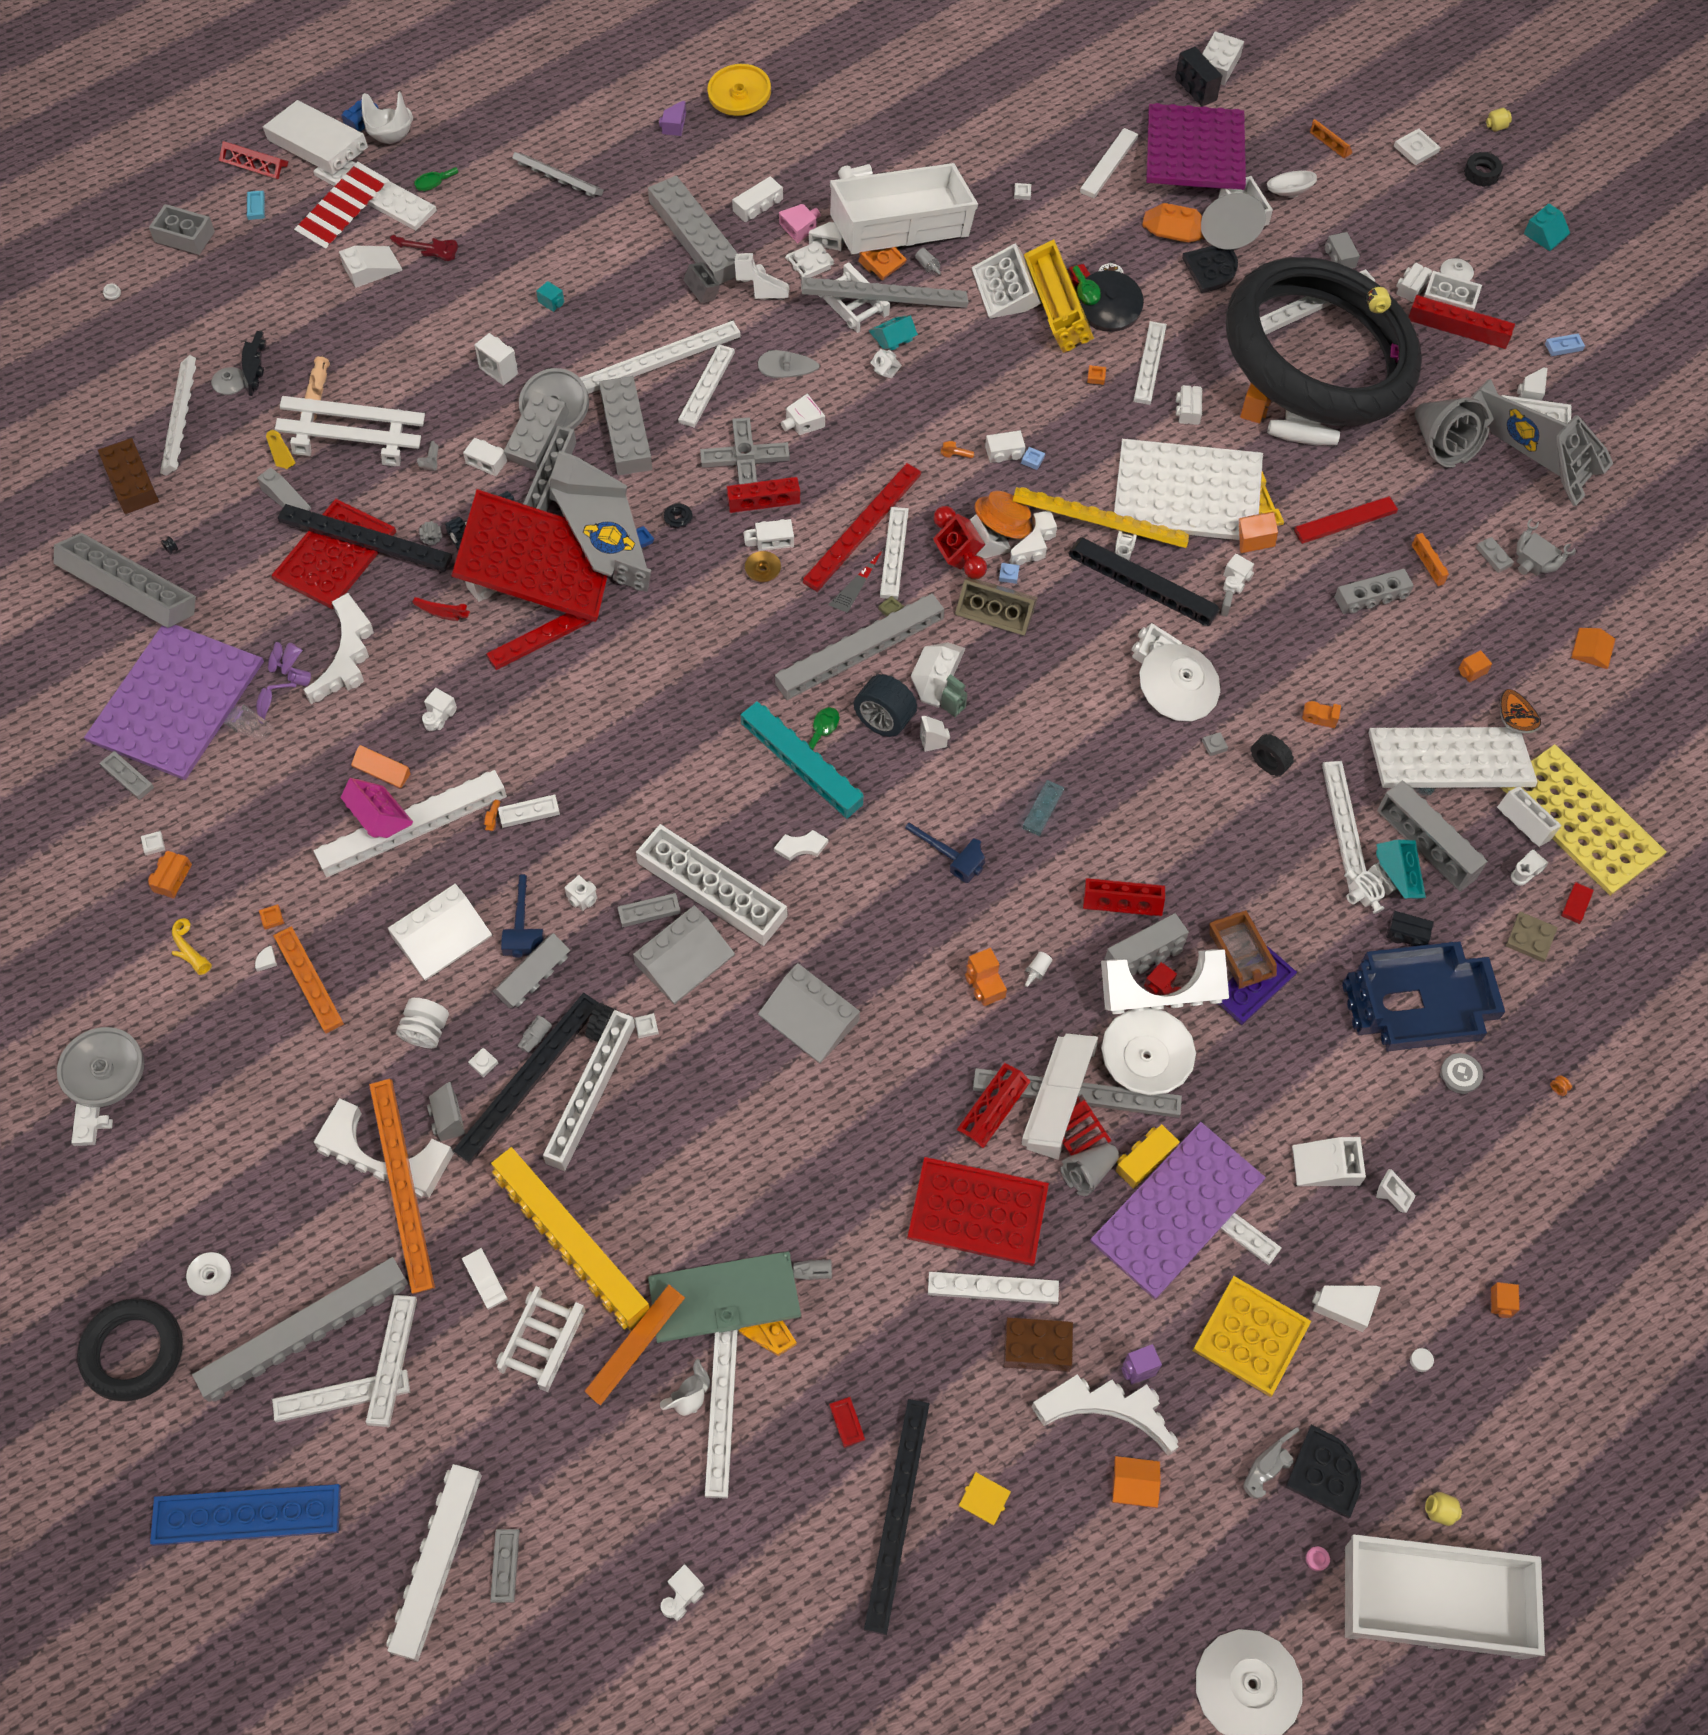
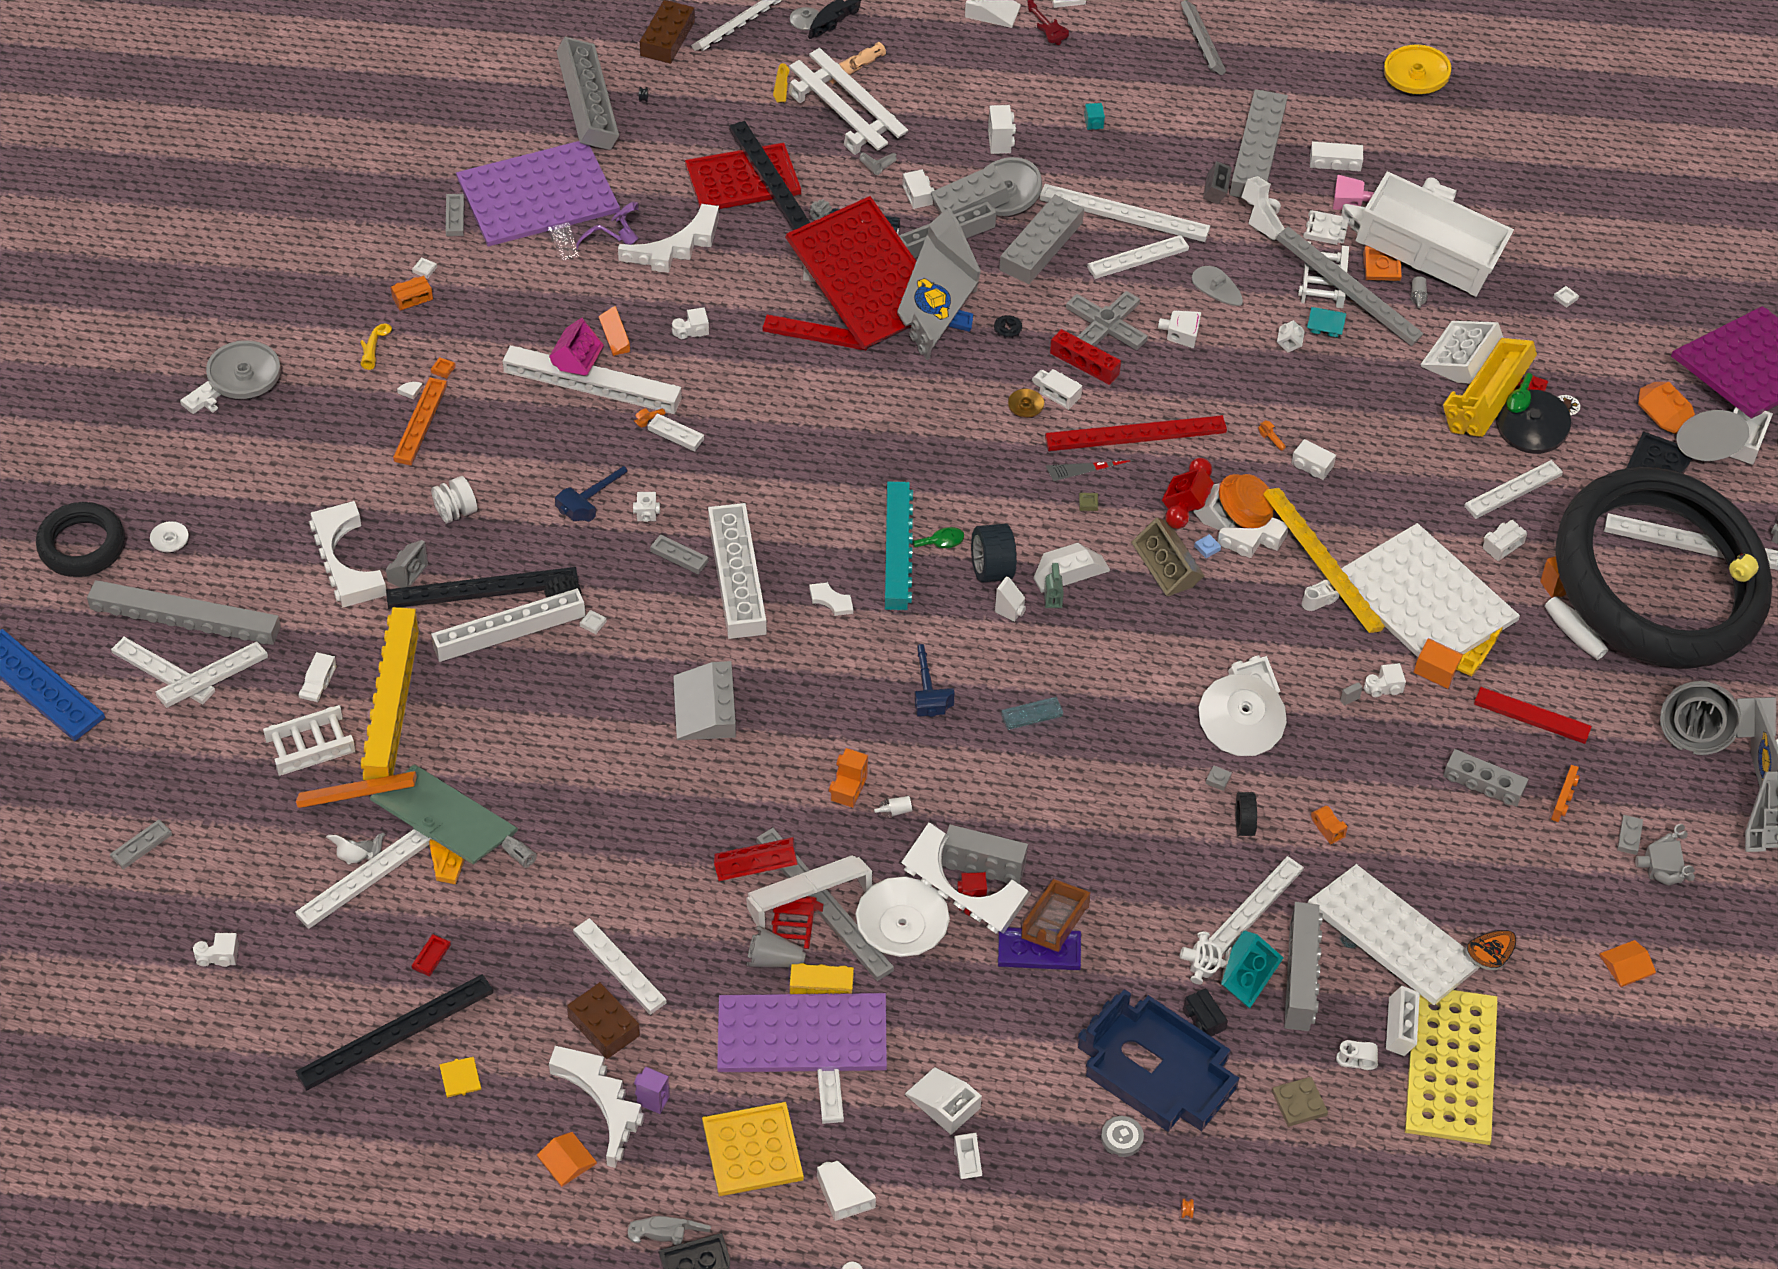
camera: 45 degrees right, 10 degrees down
(280, 490) = (754, 112): light grey slope -> none
(402, 1186) = (329, 579): orange plate -> none
(434, 1564) = (105, 803): white brick -> none
(439, 932) = (531, 457): white slope -> none
(442, 611) = (768, 264): red piece -> none
(483, 1062) = (466, 557): white plate -> none
(531, 971) = (558, 526): light grey brick -> none
(534, 1034) = (516, 566): light grey hinge -> none
(673, 119) = (1341, 57): medium lavender slope -> none
(683, 955) = (667, 598): light grey slope -> none
(859, 646) = (1031, 507): light grey brick -> none
(894, 553) = (1137, 468): white tile -> none
(978, 1211) = (666, 913): red plate -> none
(1033, 458) = (1326, 484): light blue plate -> none
(1096, 374) = (1454, 464): orange plate -> none
(1109, 163) = (1669, 326): white tile -> none
(1124, 897) = (1013, 812): red brick -> none
(1144, 581) = (1305, 630): black beam -> none
(1475, 666) = (1500, 892): orange brick -> none
(1577, 903) = (1368, 1112): red tile -> none

